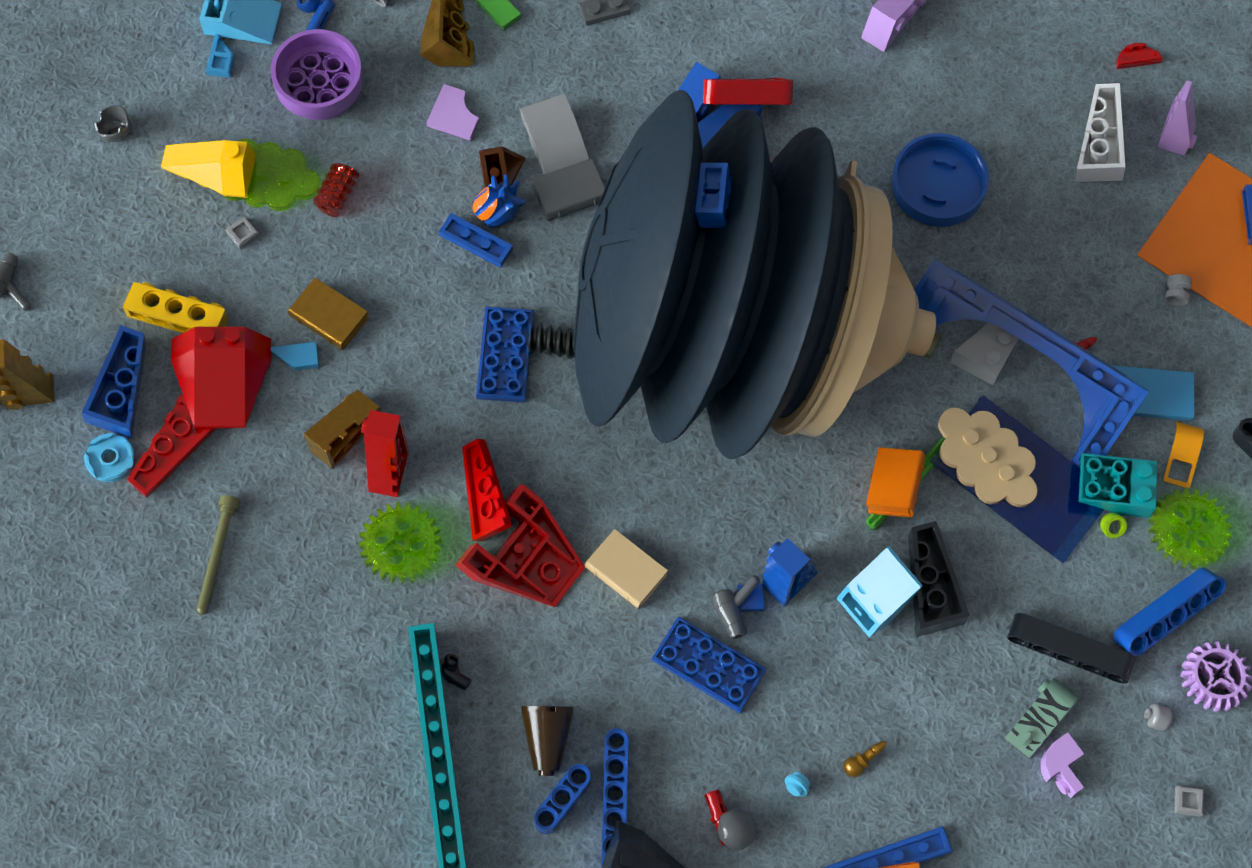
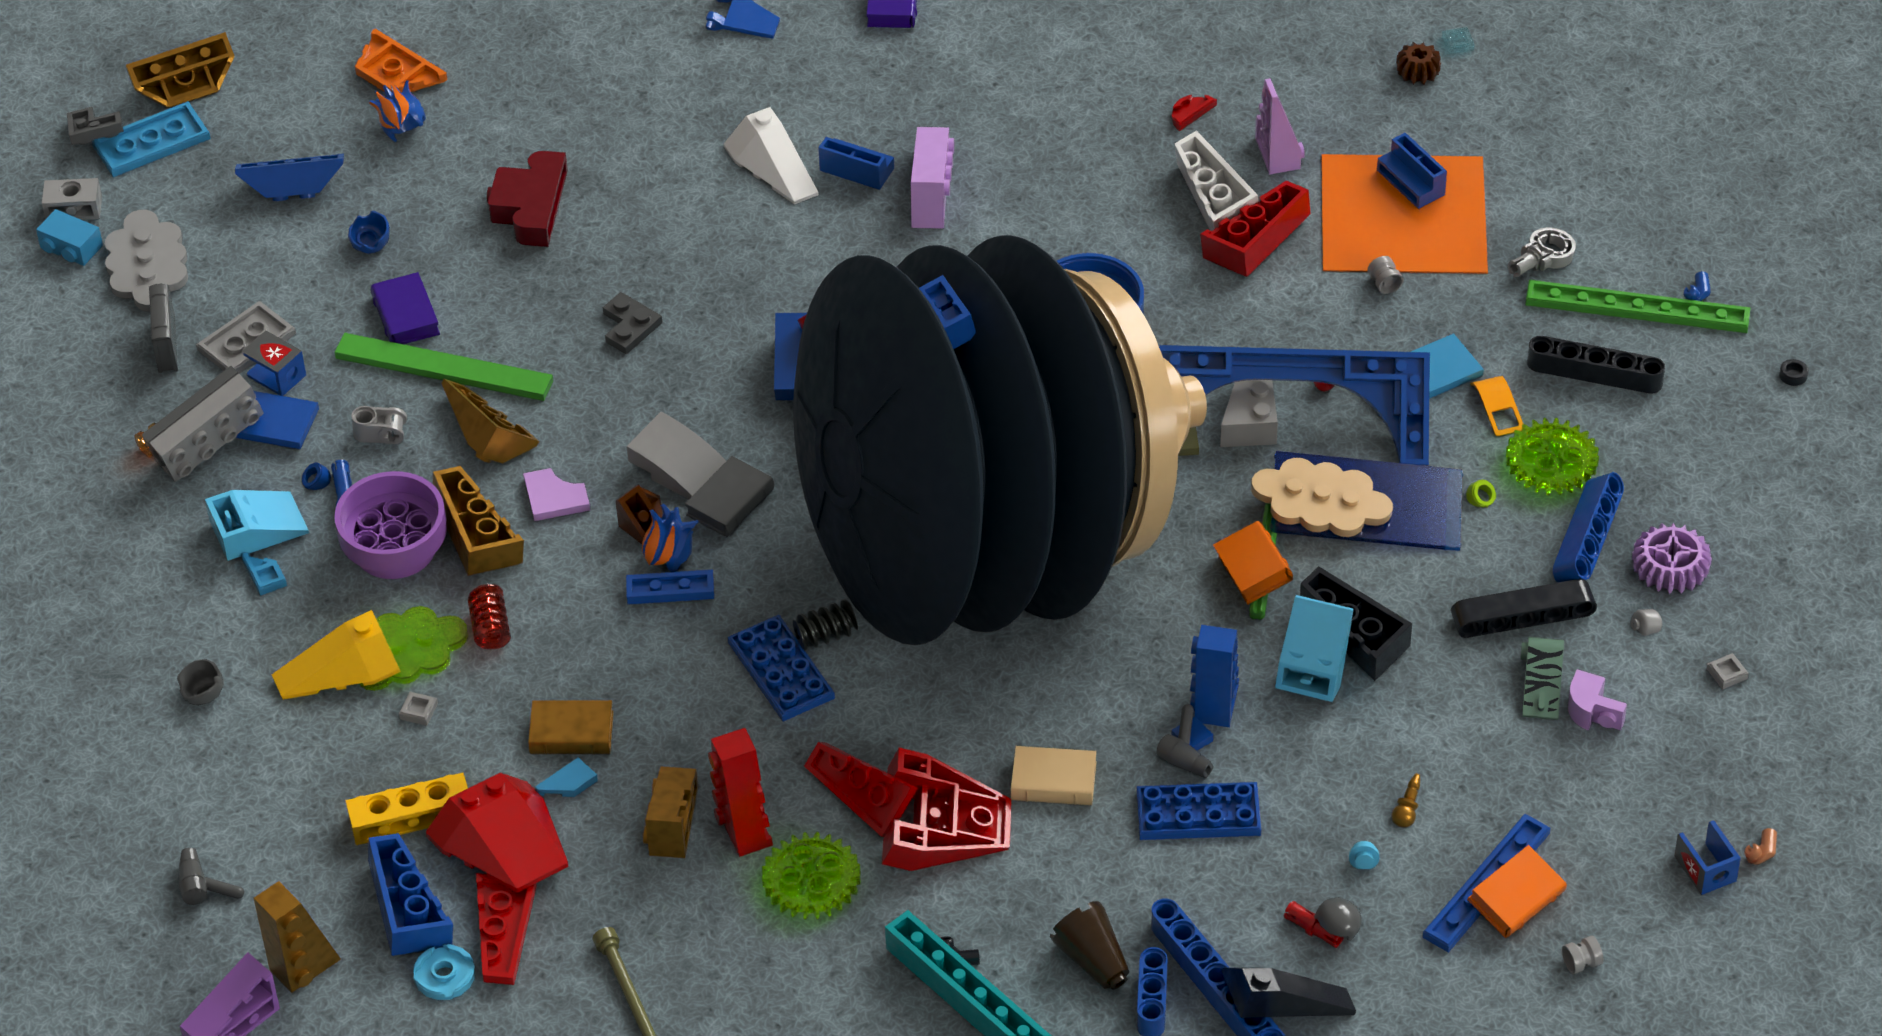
camera: 30 degrees left, 20 degrees down
(376, 111) = (474, 525): none -> pearl gold wedge
(1104, 195) = (1258, 229): none -> red wedge
(1118, 484) = (1462, 453): teal slope -> none

